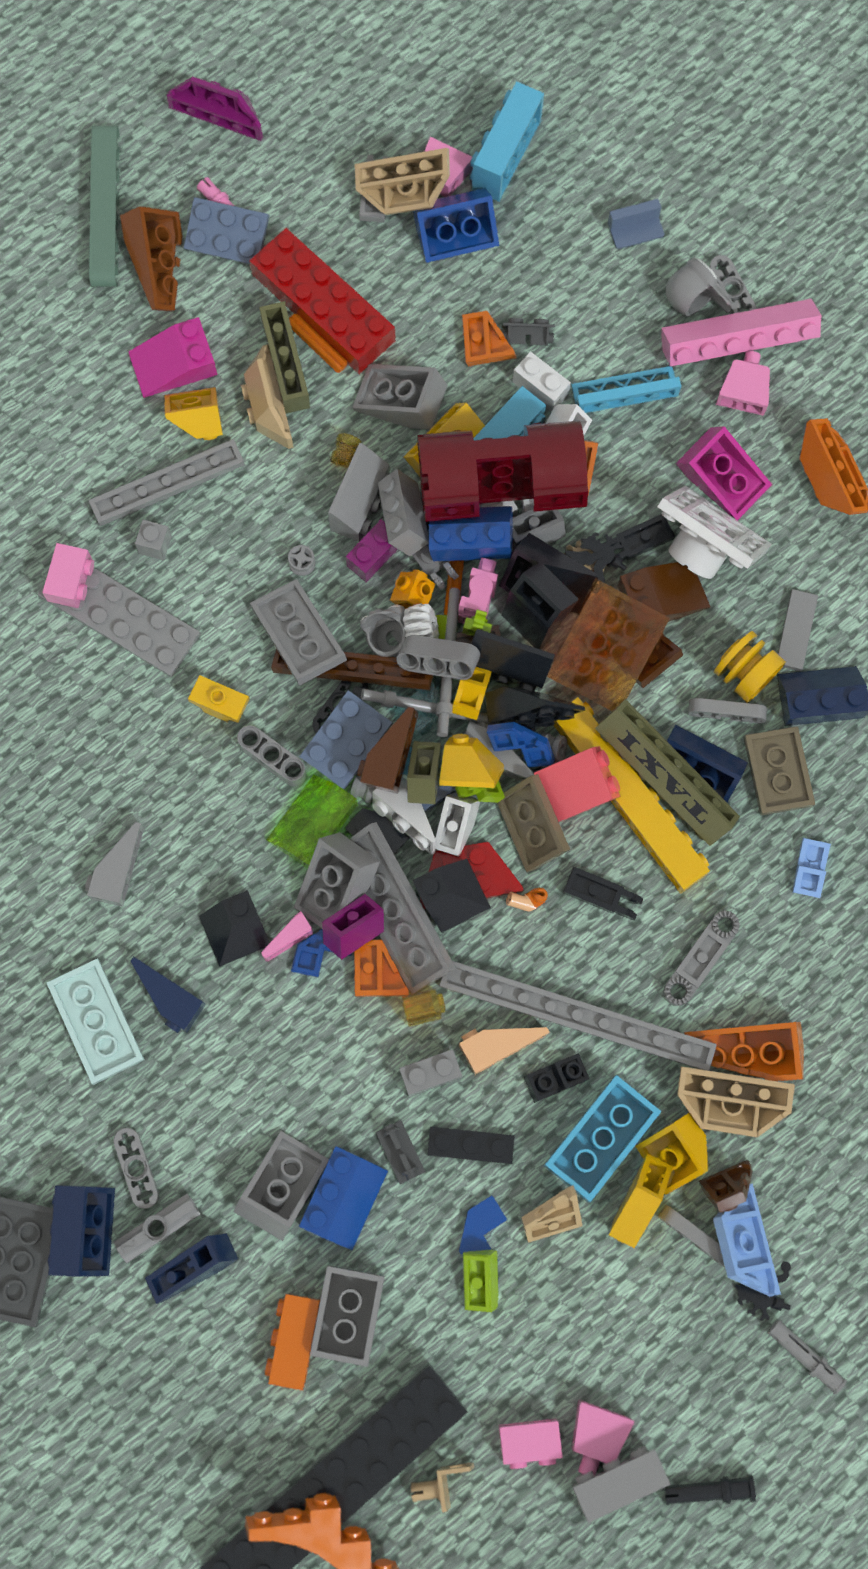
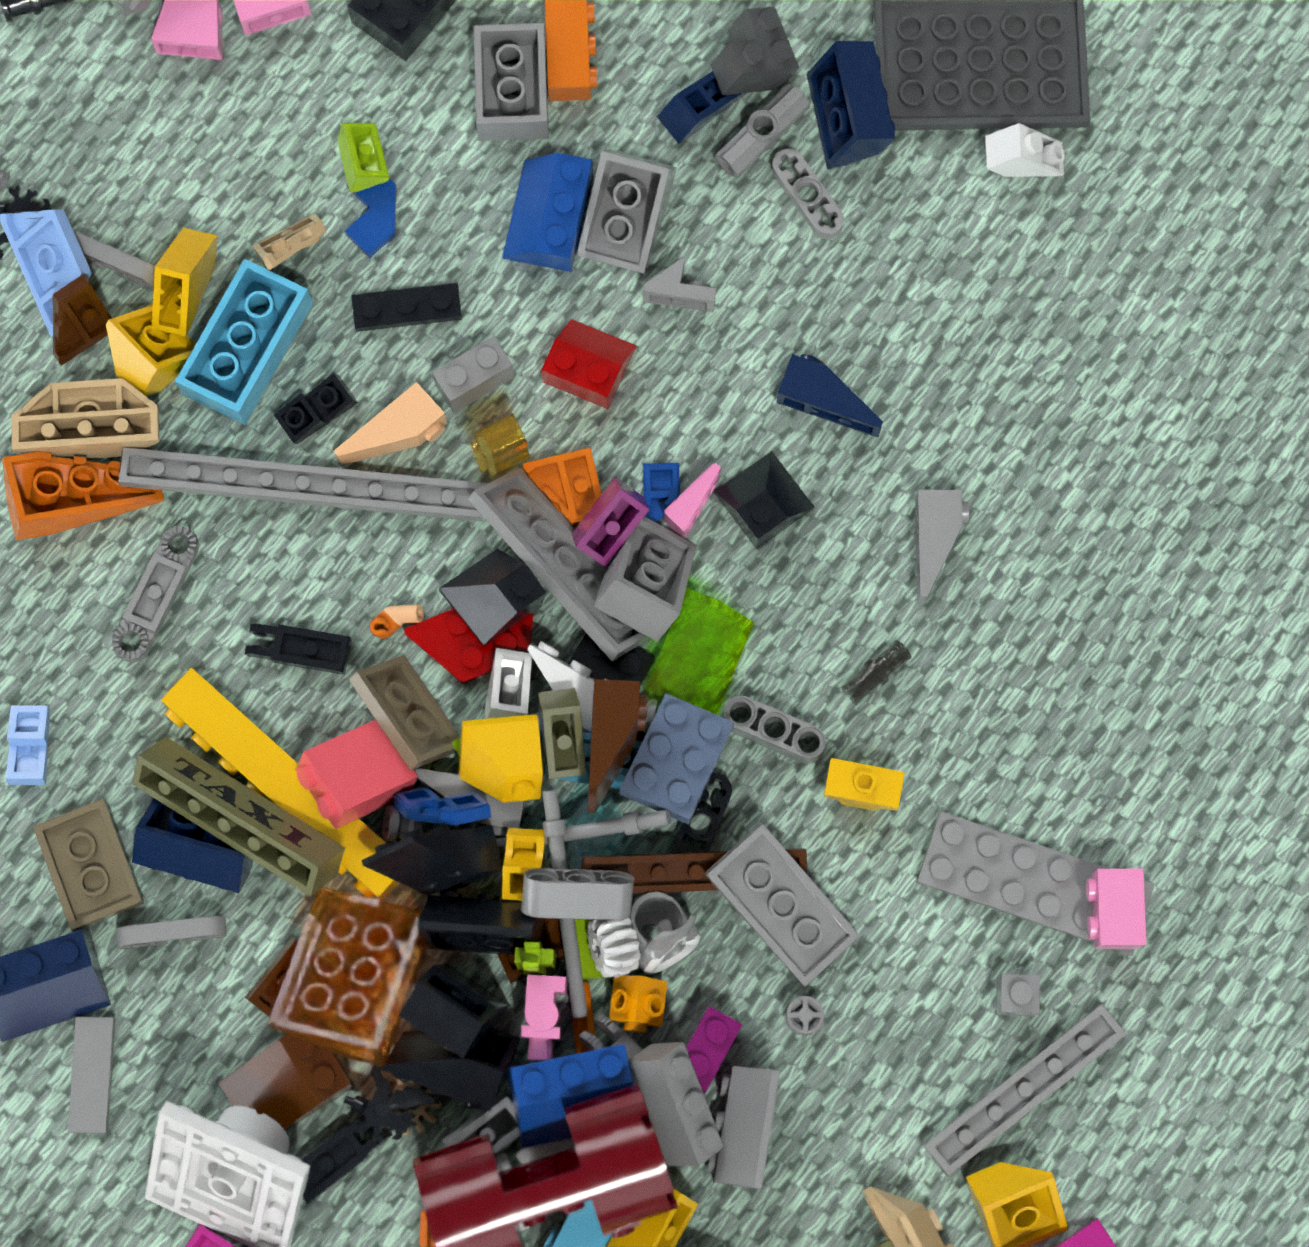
camera: 170 degrees right, 0 degrees up
(95, 1021) = (907, 349): light aqua plate -> none
(140, 1293) = (757, 56): none -> dark grey brick
(187, 783) = (876, 672): none -> clear smoke pin
(263, 1111) = (670, 291): none -> light grey slope
(339, 1066) = (587, 363): none -> red slope
(345, 450) = (783, 1196): clear yellow wheel -> none
(400, 1152) = (490, 280): dark grey hinge -> none
(749, 666) = (142, 990): yellow wheel -> none

